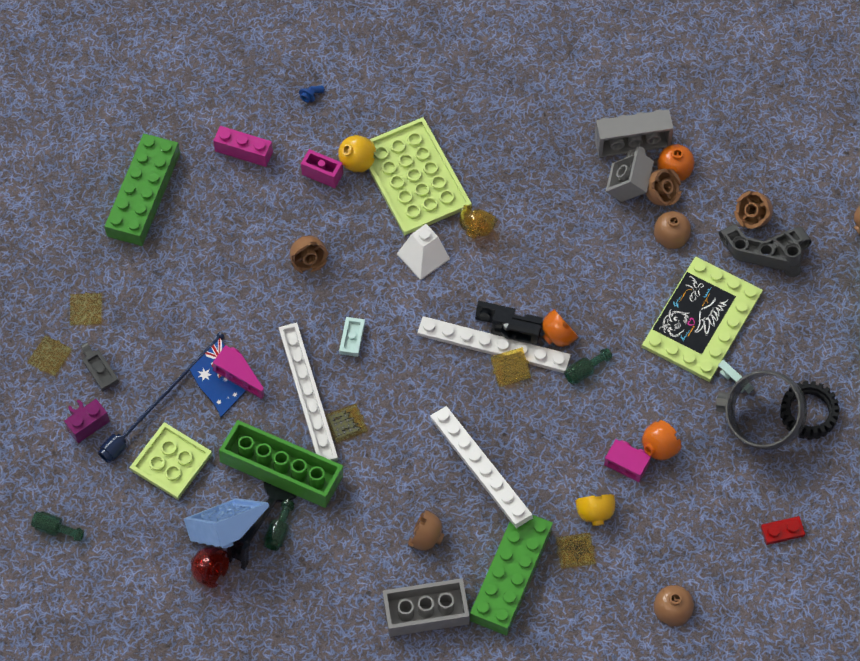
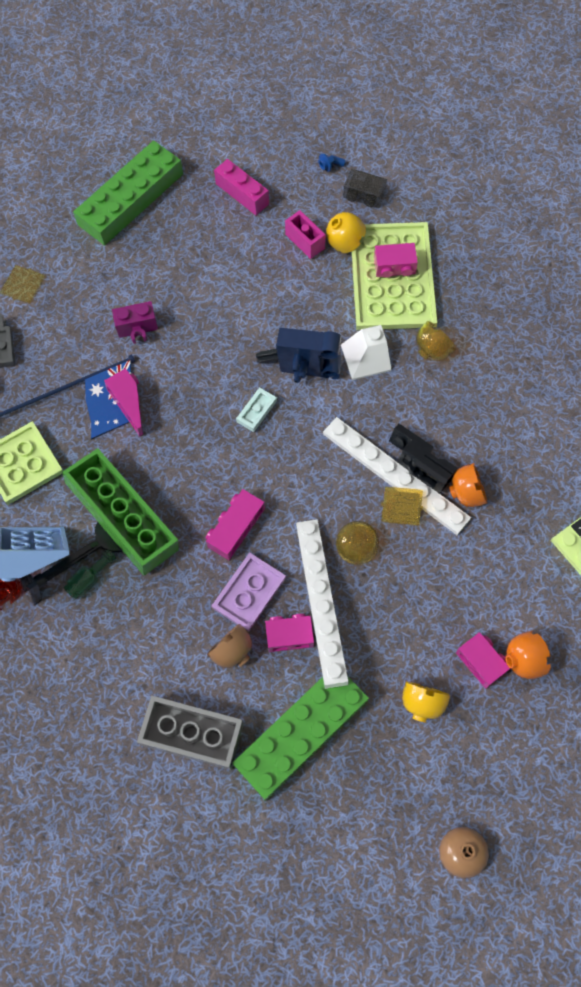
camera: 25 degrees right, 5 degrees up
(209, 301) = (135, 320): none -> magenta brick
(307, 391) = (185, 451): white plate -> none
(308, 251) = (251, 308): medium nougat cylinder -> none
(346, 423) = (209, 495): piece -> none
(353, 106) = (364, 188): none -> clear smoke brick
(374, 273) = (306, 353): none -> dark blue piece
(380, 436) = (235, 524): none -> dark pink brick
(412, 162) = (395, 260): none -> dark pink brick
(417, 484) = (248, 592): none -> lavender plate
(466, 503) = (289, 633): none -> dark pink brick
(487, 411) = (357, 542): none -> clear yellow cylinder
(575, 550) = (382, 737): clear yellow piece -> none
(584, 367) = (480, 538): clear green piece -> none

